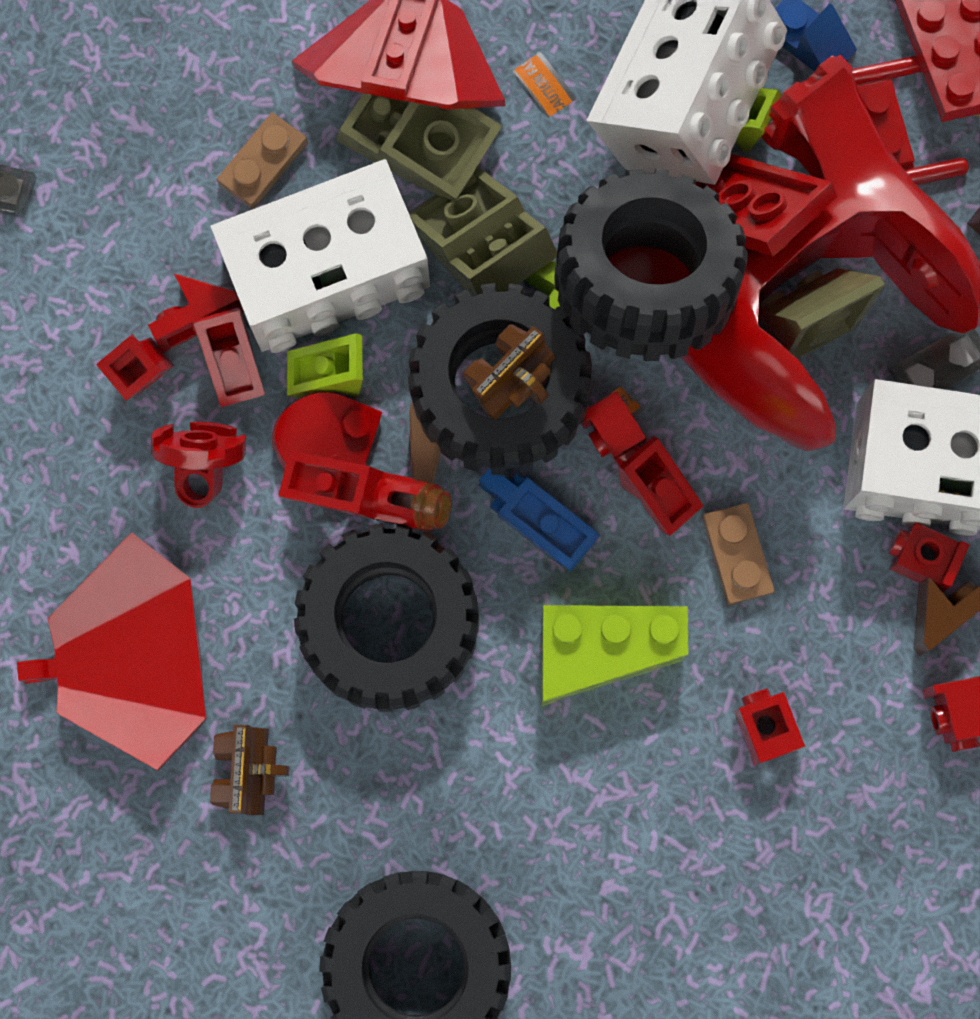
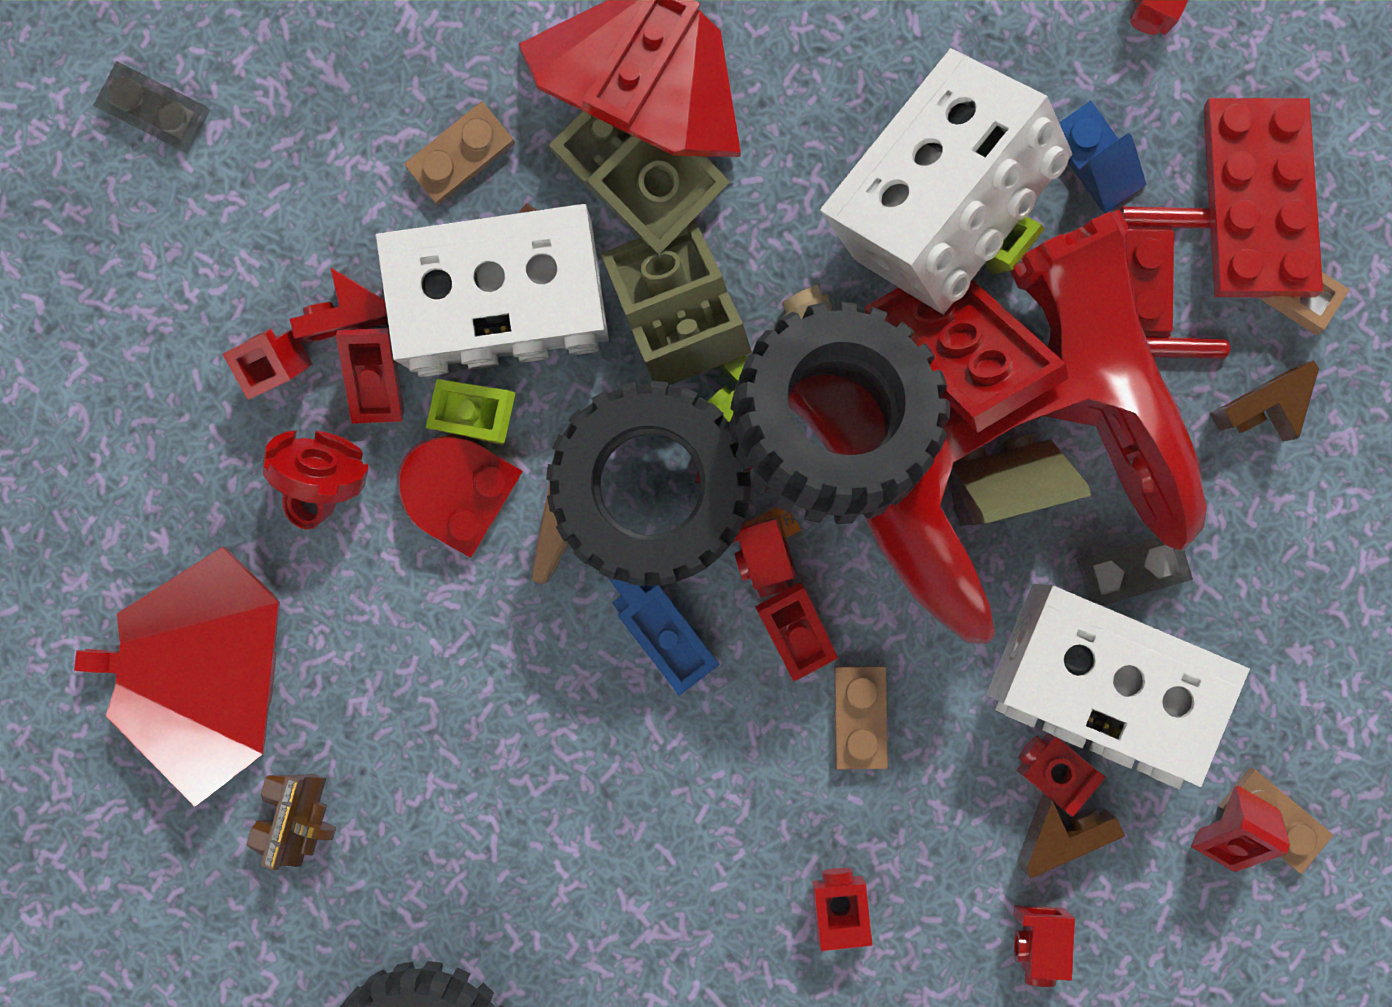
camera: 10 degrees right, 10 degrees up
(365, 492) = (477, 567): red plate -> none
(377, 555) = (417, 746): black tyre -> none
(515, 375) = (660, 503): reddish brown hips -> none
(544, 84) = (790, 139): orange sticker -> none
(607, 644) = (696, 785): lime wedge -> none

